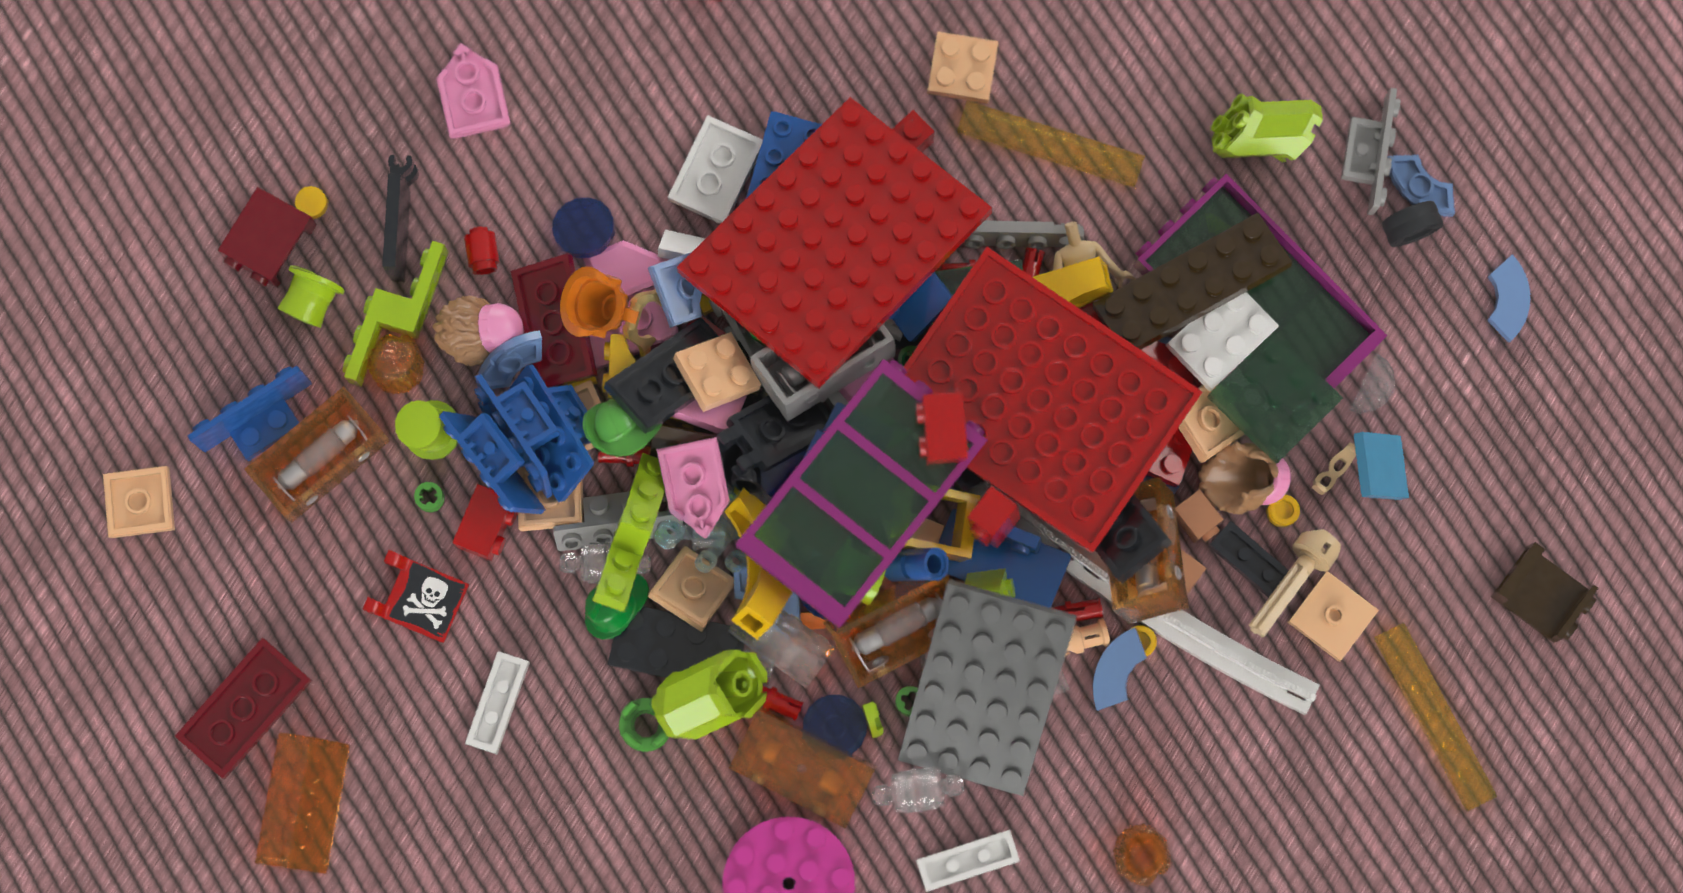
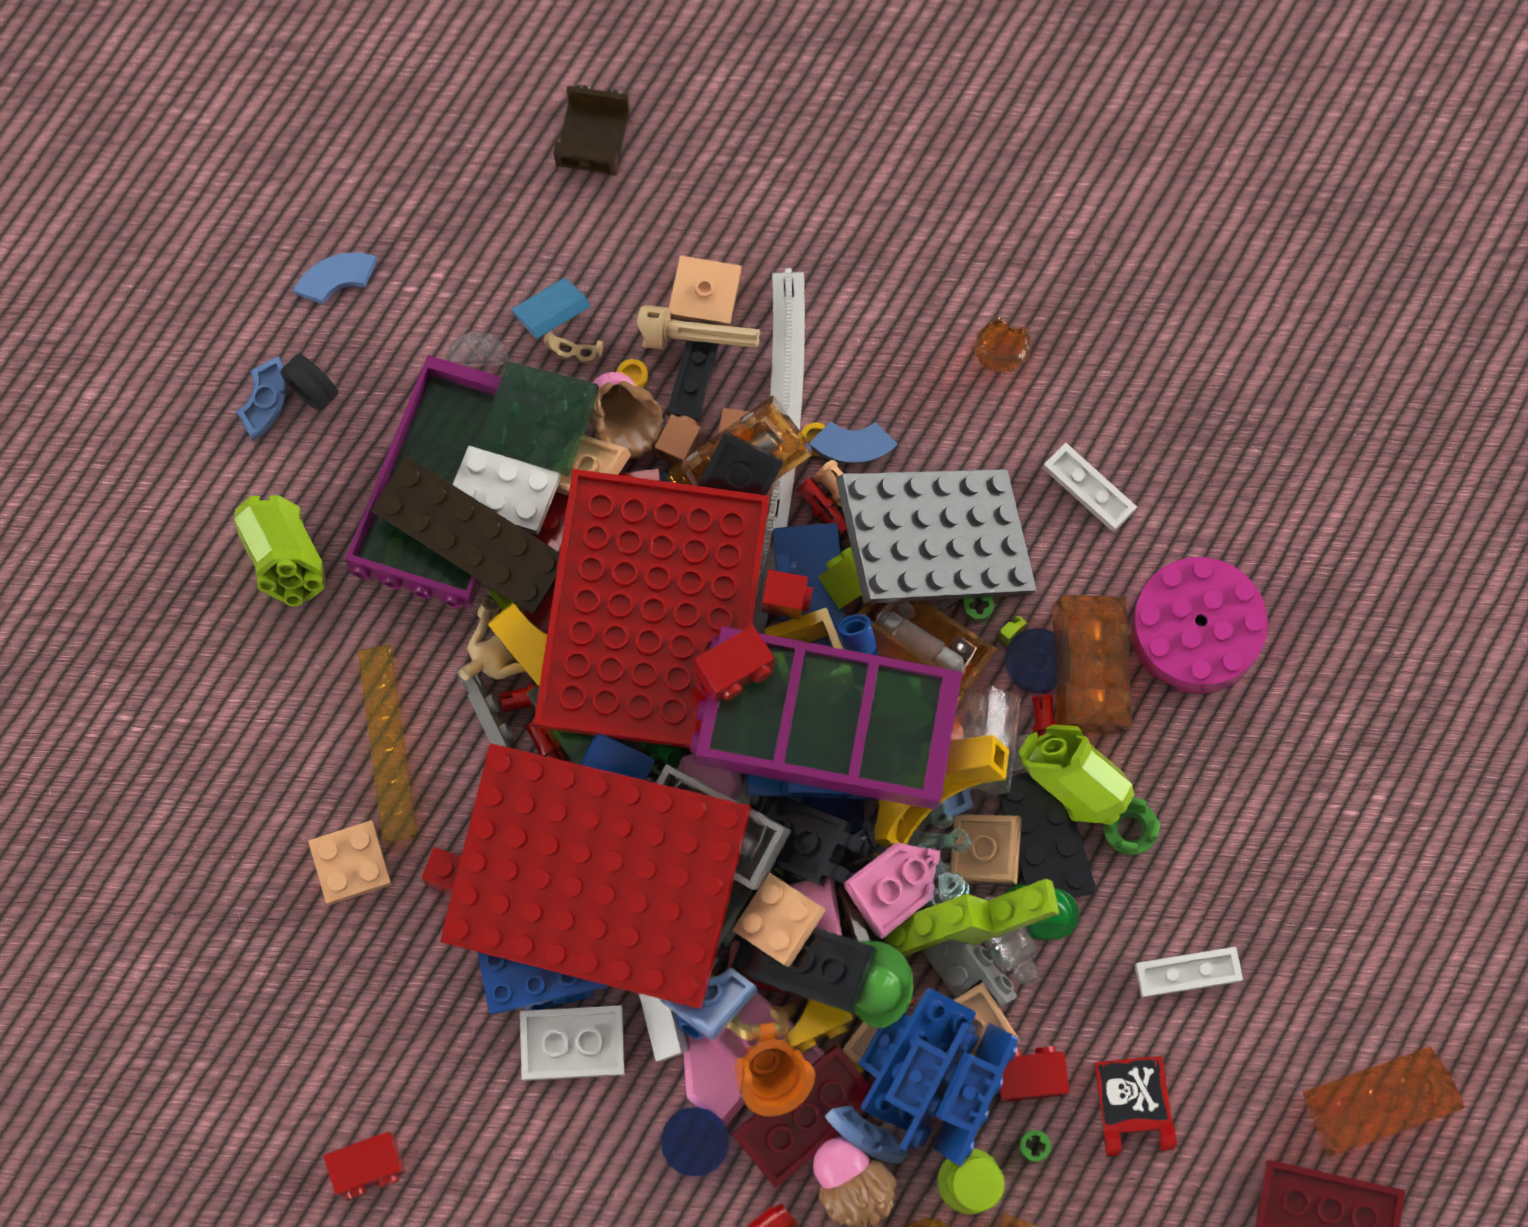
camera: 115 degrees left, 5 degrees down
(918, 790) = (1054, 556): clear piece -> none
(1368, 149) = (253, 453): light grey bracket -> none
(1435, 717) = (747, 171): clear yellow tile -> none

